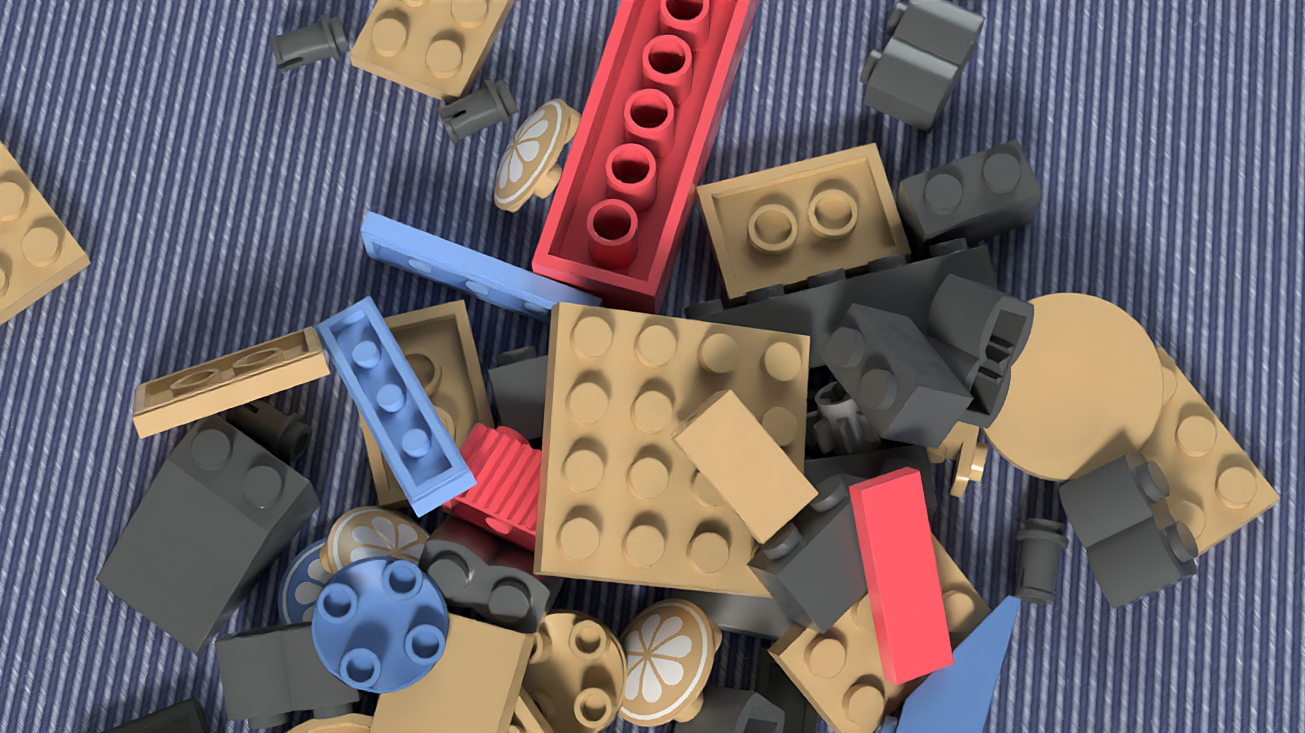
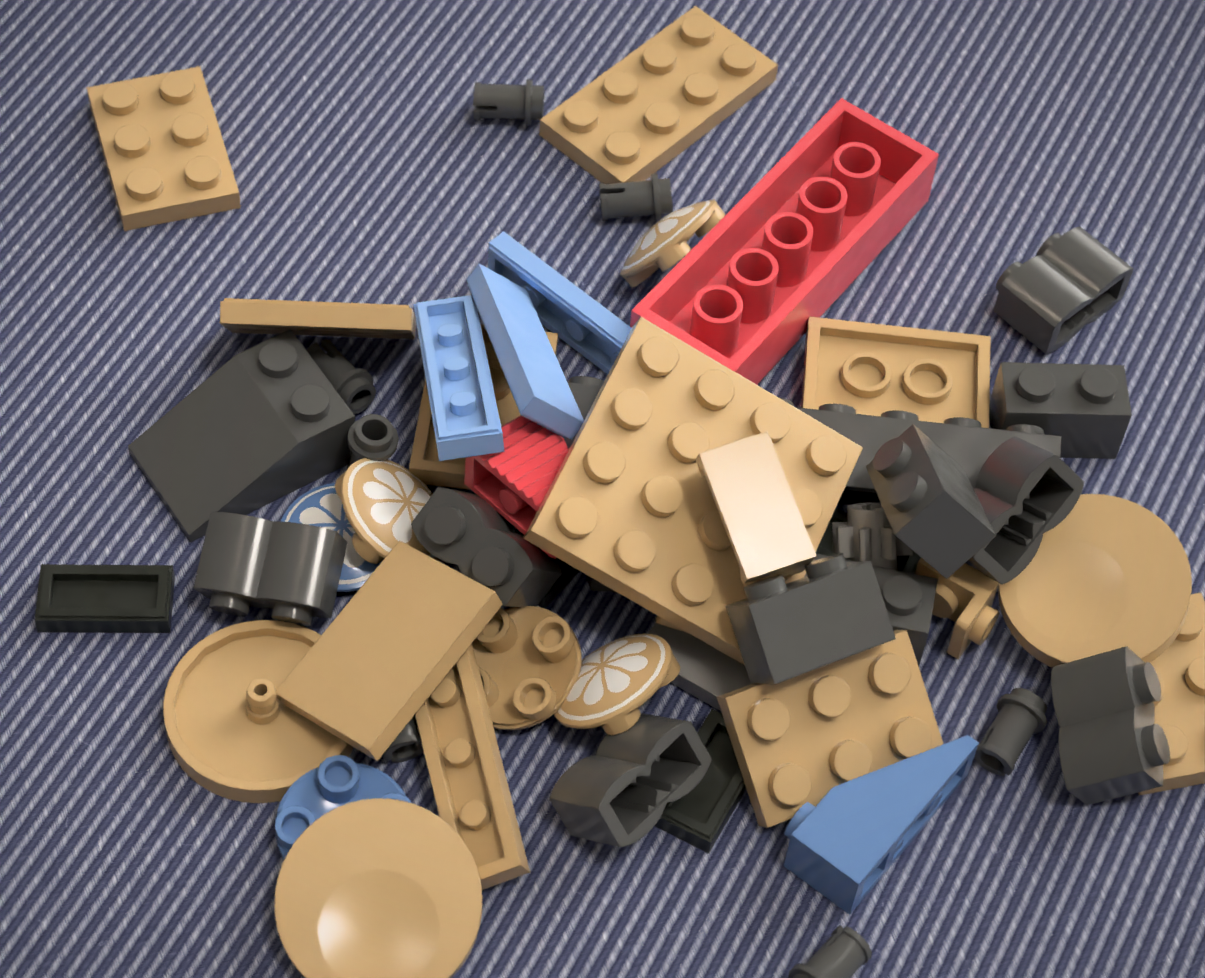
camera: 15 degrees right, 15 degrees down
(326, 494) = (372, 439): none -> dark grey pin
(380, 624) = (365, 541): medium blue dish -> none
(447, 352) = (524, 353): none -> light blue tile
(901, 575) = (868, 660): coral tile -> none

